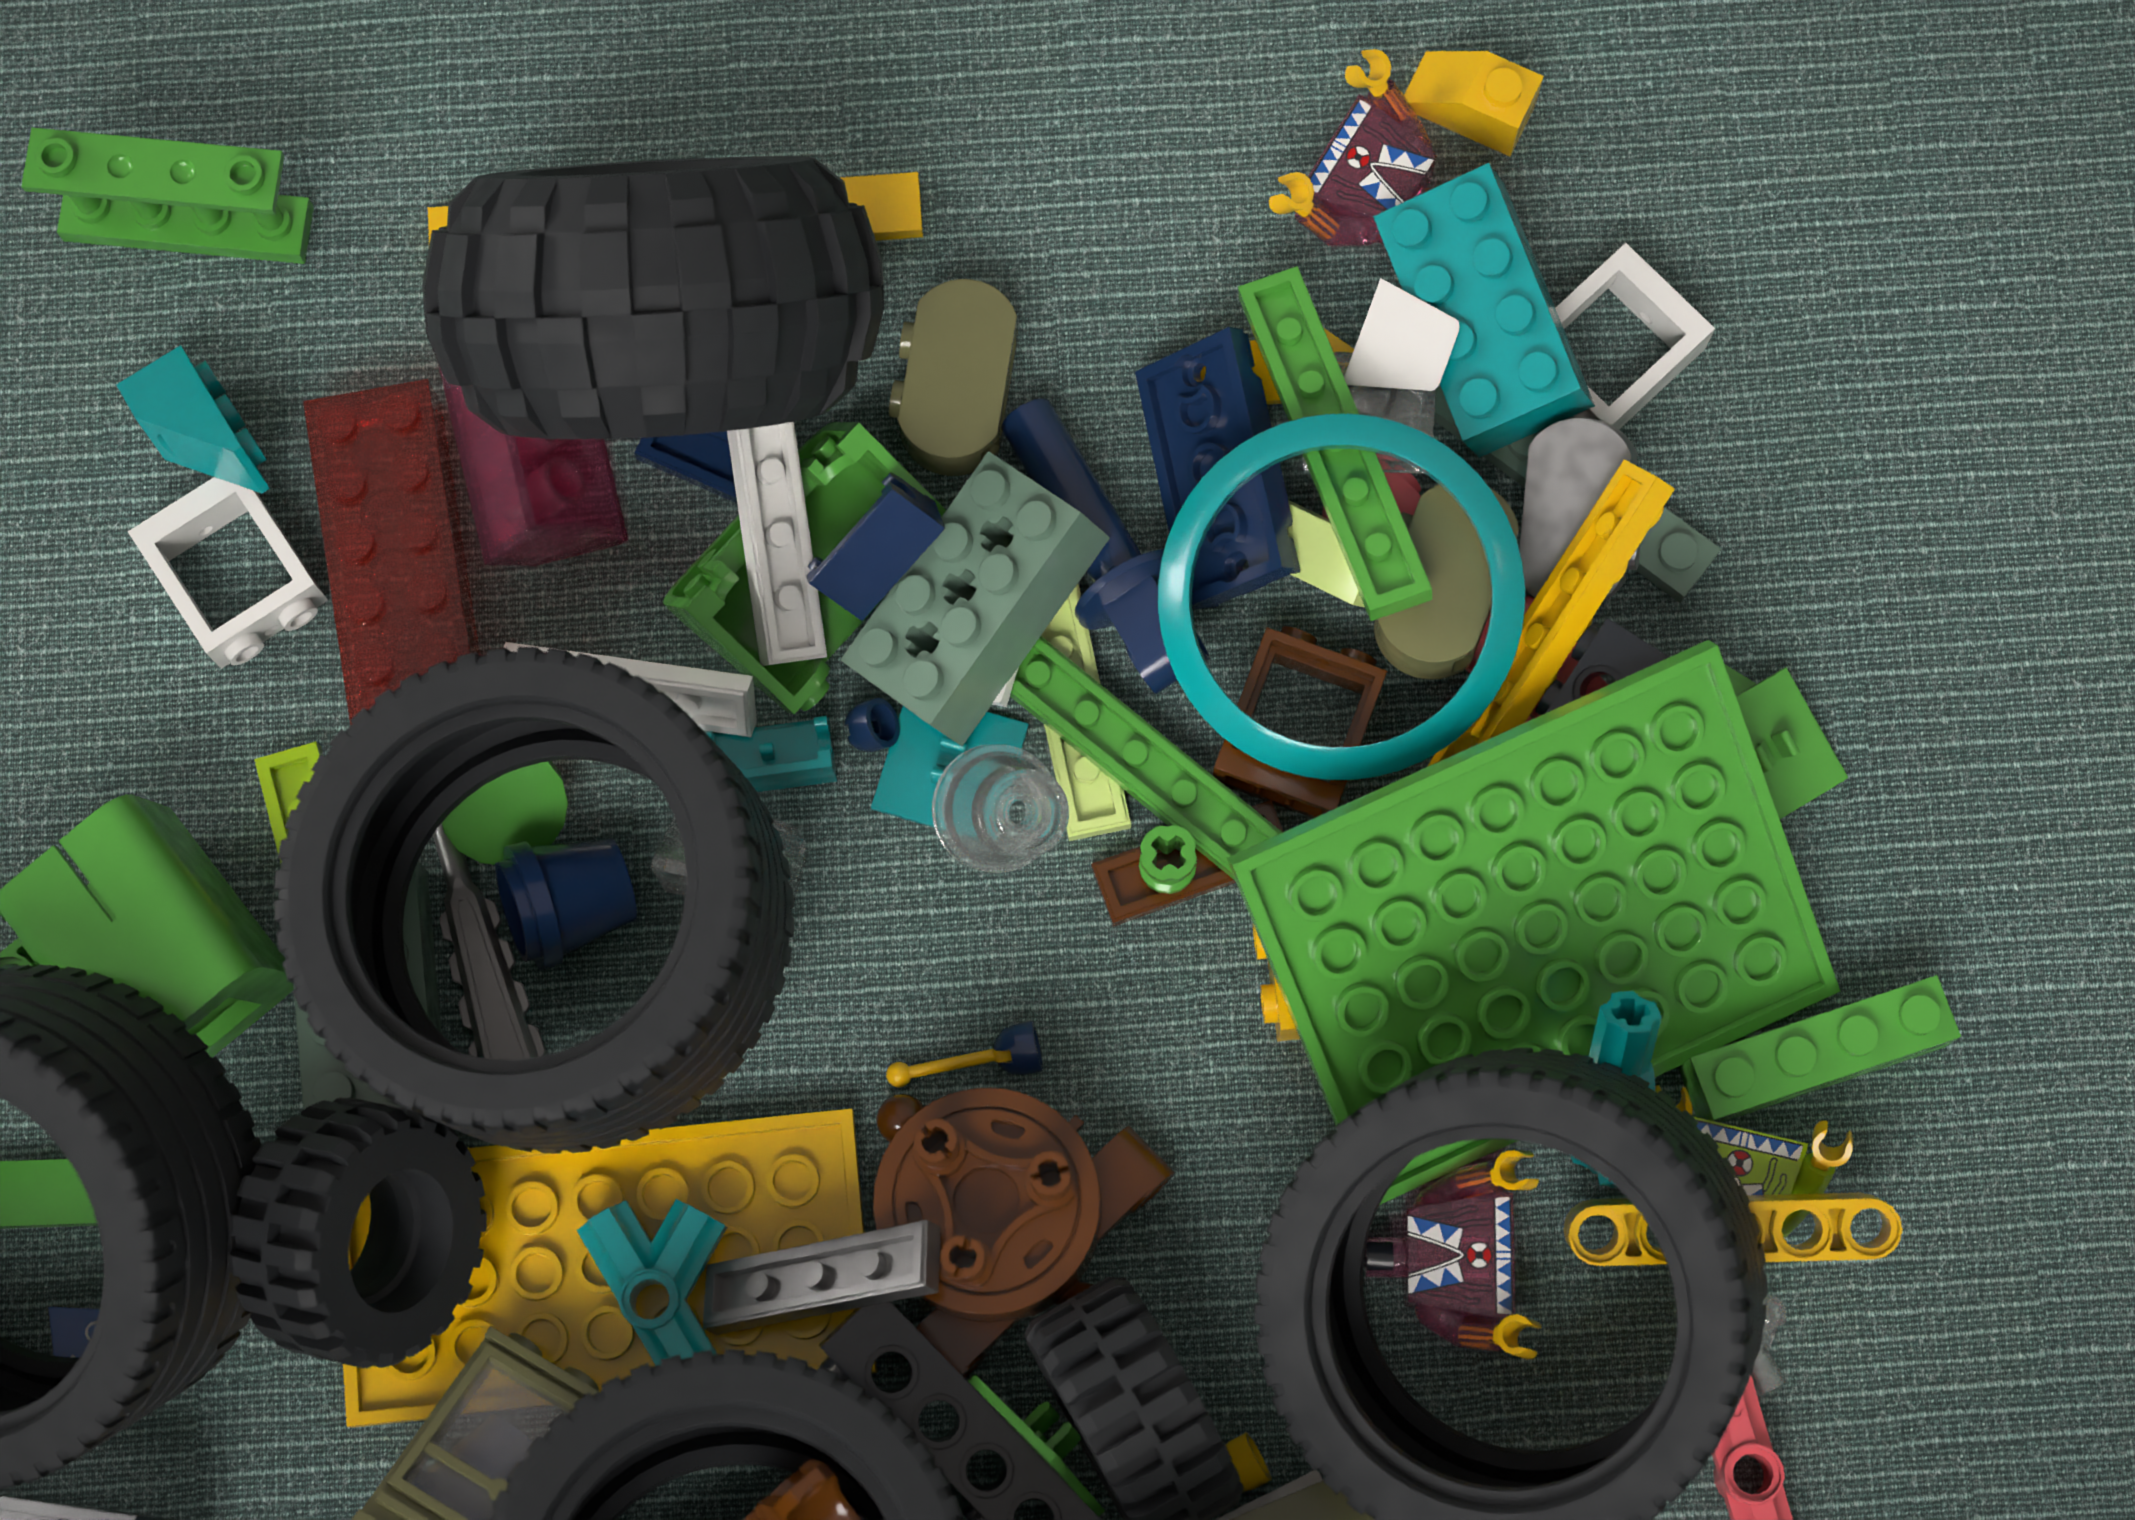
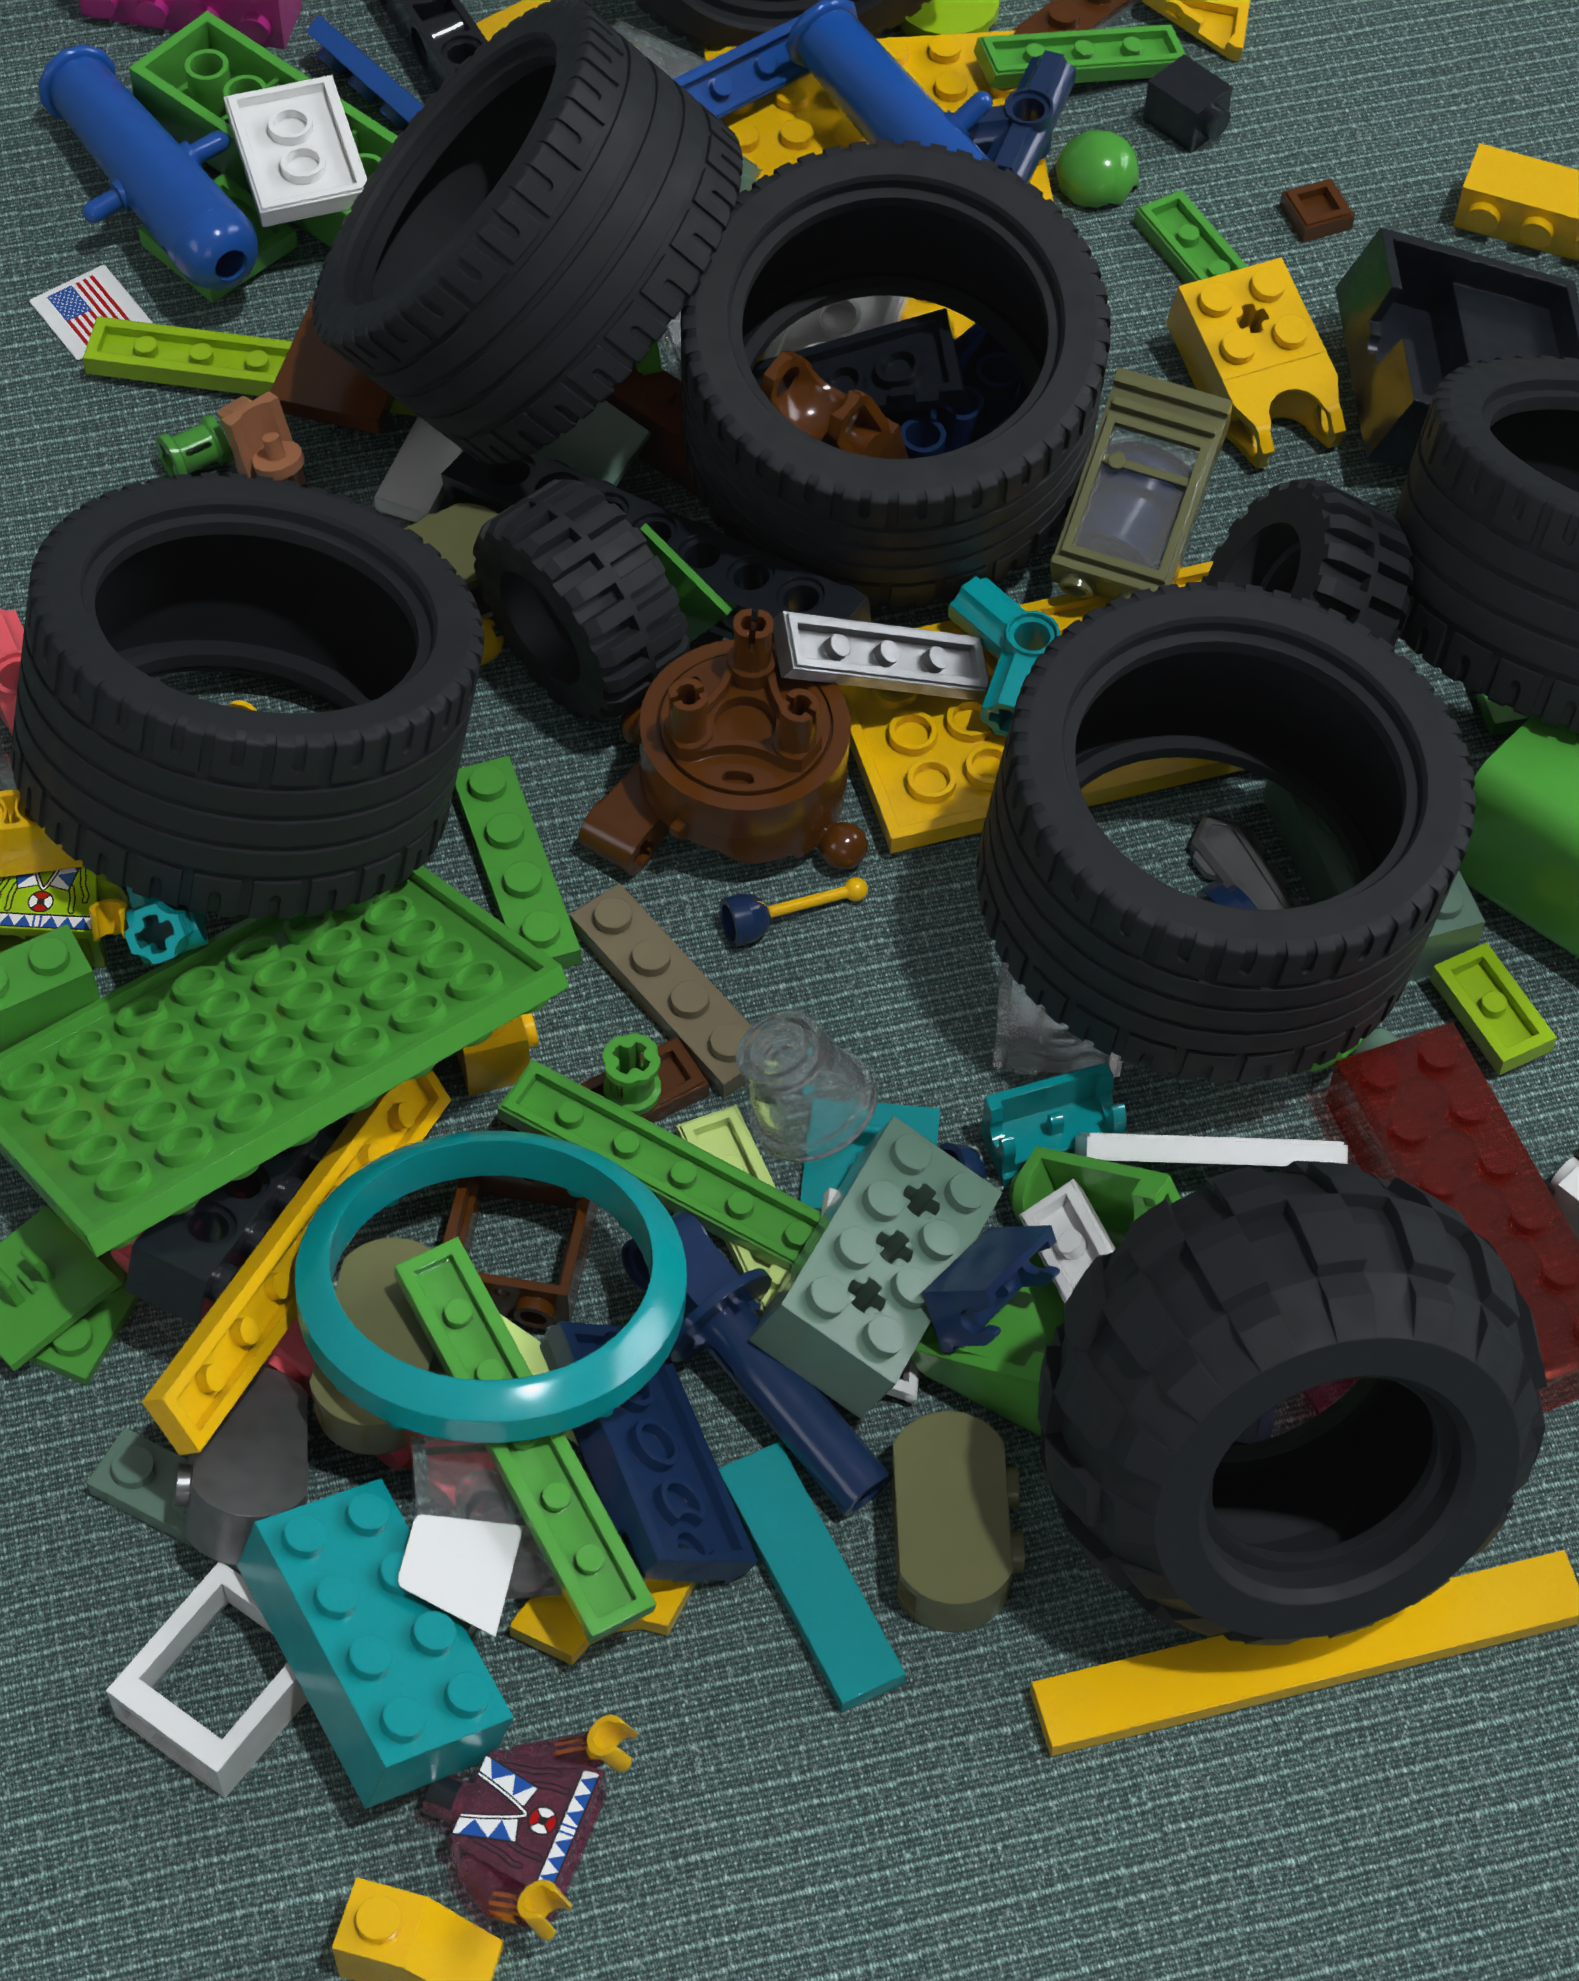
camera: 165 degrees right, 20 degrees down
(1090, 362) = (812, 1578): none -> teal tile
(1109, 987) = (664, 983): none -> dark tan plate
(1239, 1150) = (514, 859): none -> bright green plate

